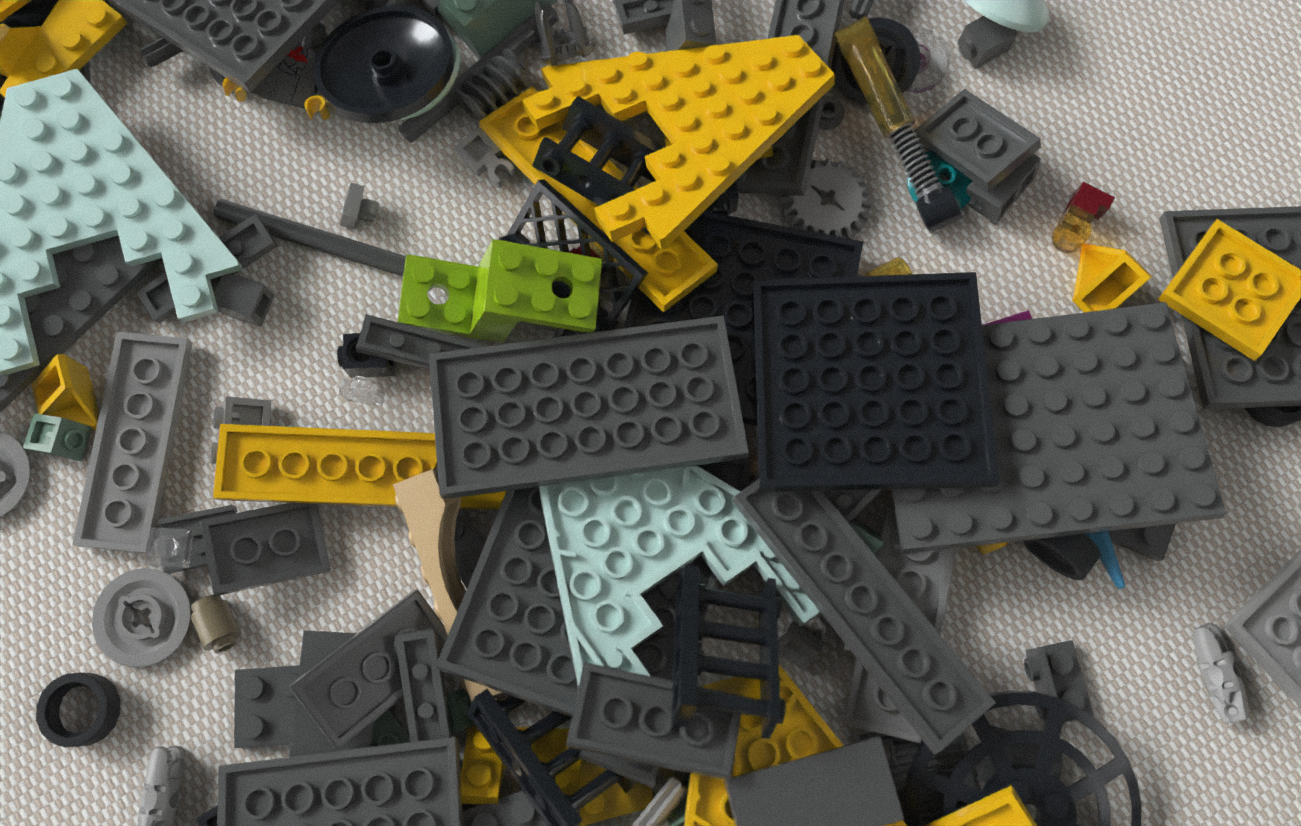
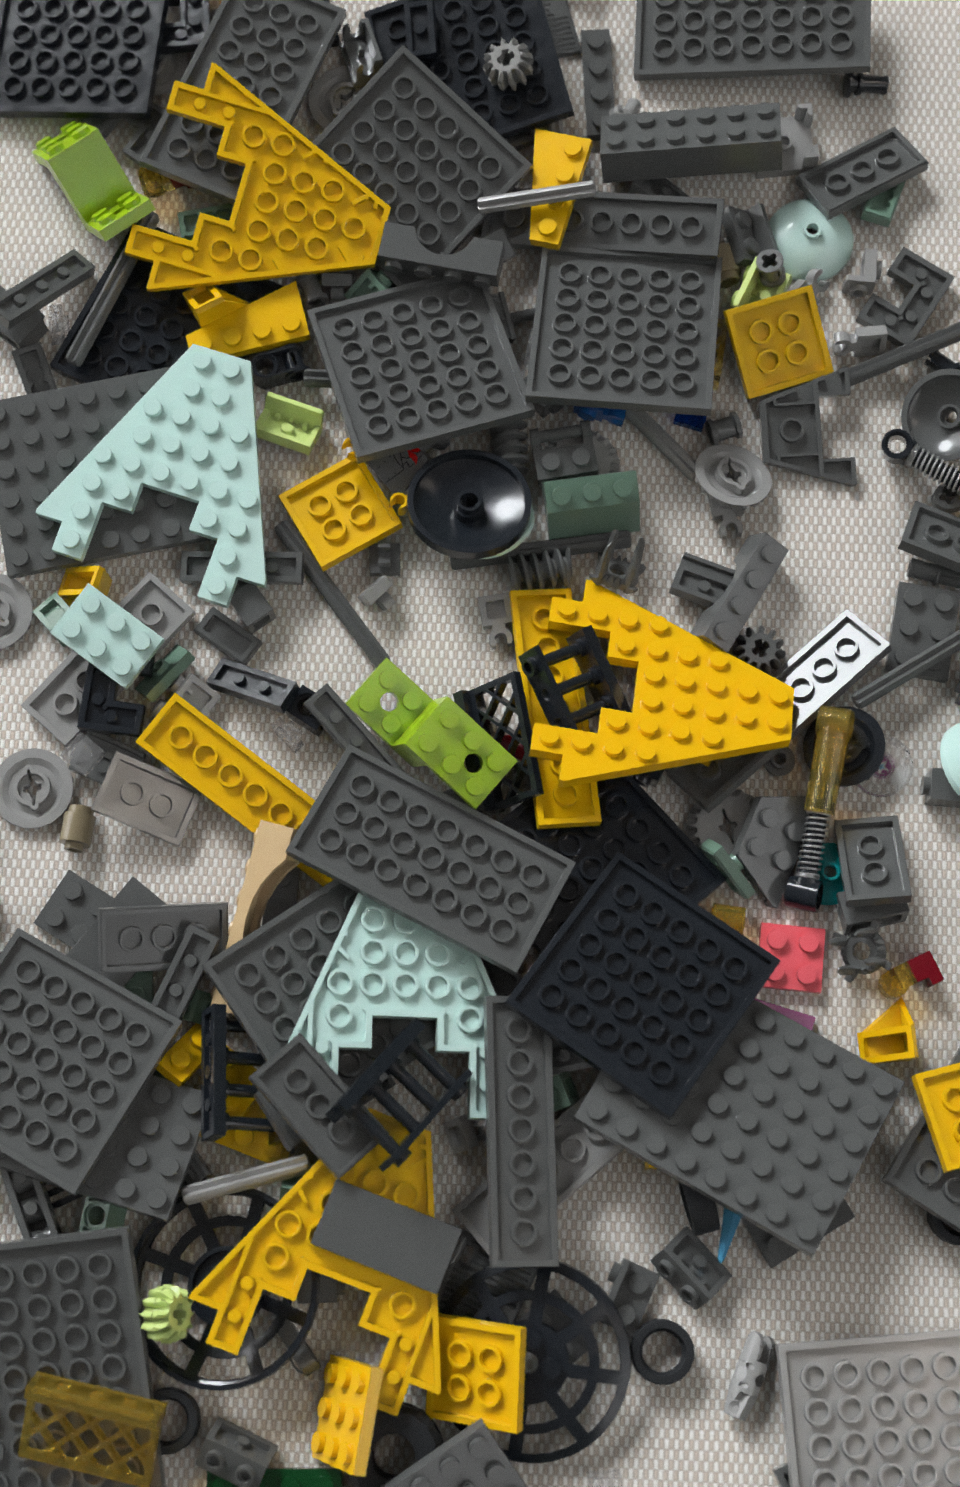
camera: 40 degrees right, 0 degrees up
(111, 416) = (107, 636): none -> light aqua plate
(113, 68) = (282, 364): none -> black piece
(151, 489) = (102, 712): none -> black plate
(160, 108) = (290, 423): none -> yellowish green bracket
(199, 416) = (165, 673): none -> sand green plate
(239, 342) = (228, 636): none -> dark grey tile
(267, 157) = (340, 512): none -> yellow plate
(295, 367) = (253, 685): none -> plate
(339, 172) = (384, 559): none -> dark grey tile
(740, 25) = (771, 647): none -> dark grey gear
(860, 228) = (729, 867): none -> sand green plate
(877, 185) = (771, 843): none -> dark grey wing
(972, 254) = (800, 956): none -> coral plate
(1025, 206) = (877, 954): none -> dark grey piece
(1096, 614) = (691, 1268): none -> dark grey bracket
(1157, 701) = (687, 1352): none -> black tyre

